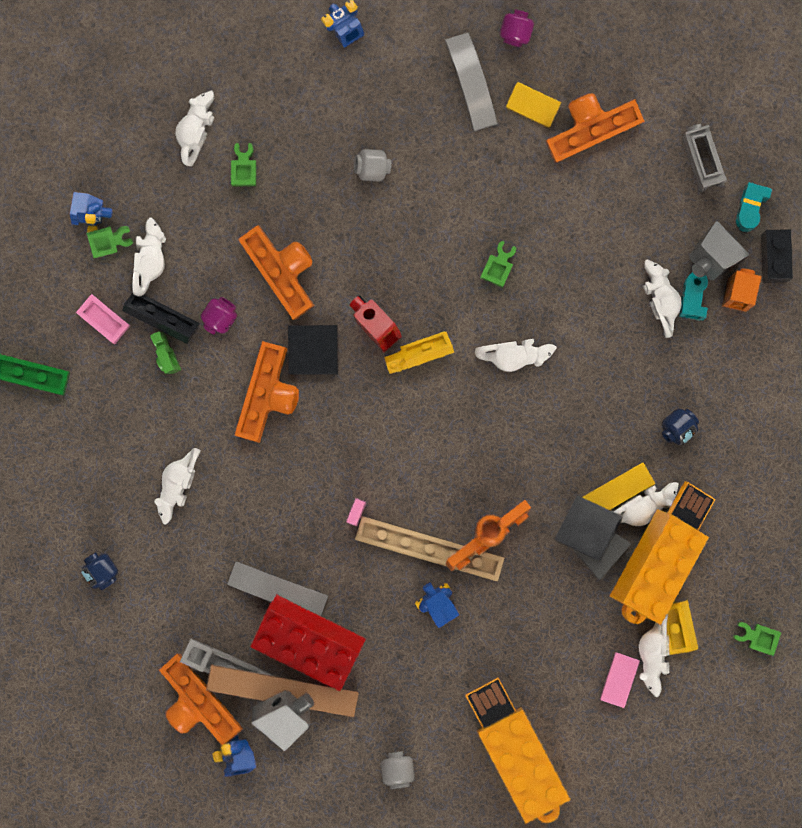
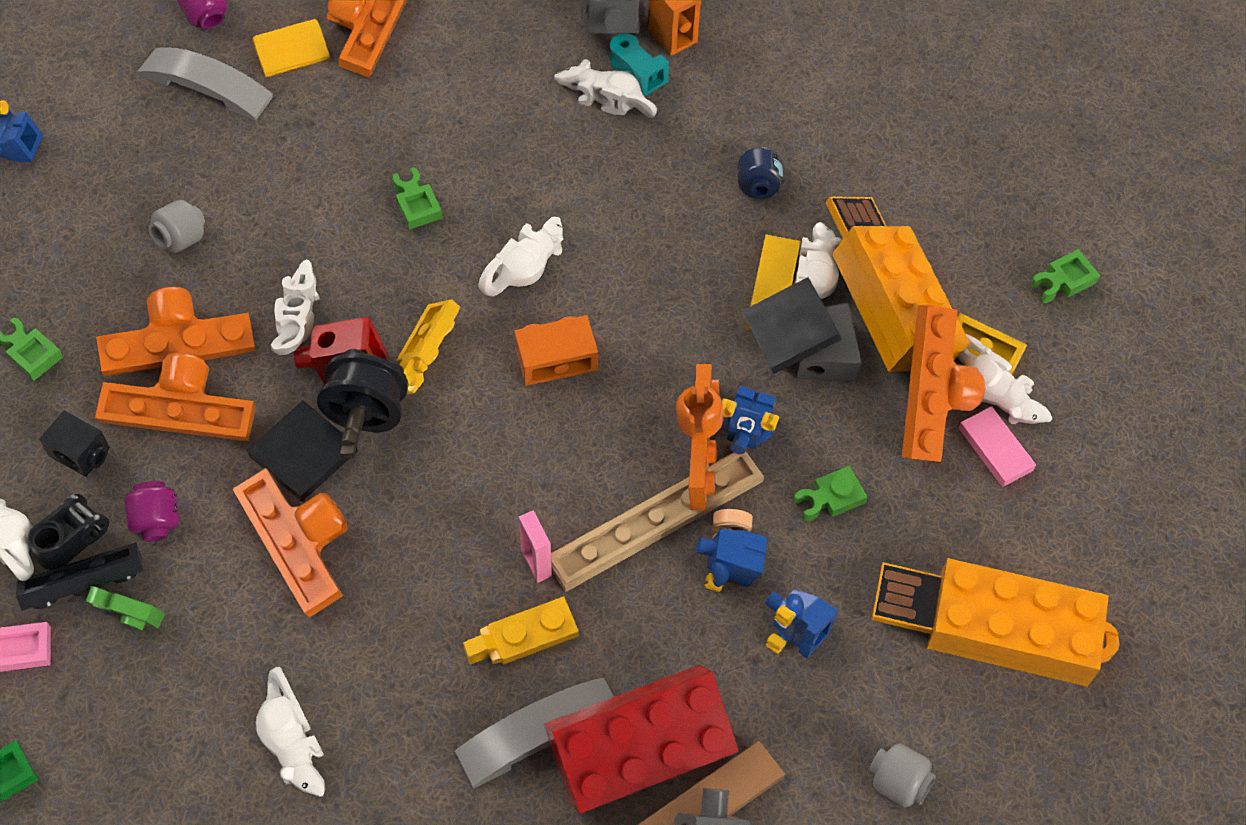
camera: 55 degrees left, 25 degrees down
(176, 288) = (68, 529): none -> black piece
(218, 245) = (75, 443): none -> black brick
(313, 230) = (174, 330): none -> orange plate
(316, 541) = (523, 633): none -> yellow hinge
(359, 357) = (362, 395): none -> black wheel
(376, 276) = (294, 311): none -> white animal
(434, 662) = (800, 620): none -> blue piece
(457, 588) = (732, 519): none -> light nougat tile
(475, 419) = (556, 349): none -> orange brick
(519, 549) = (748, 419): none -> blue piece
(521, 622) = (835, 491): none -> bright green plate
(618, 628) = (936, 384): none -> orange plate

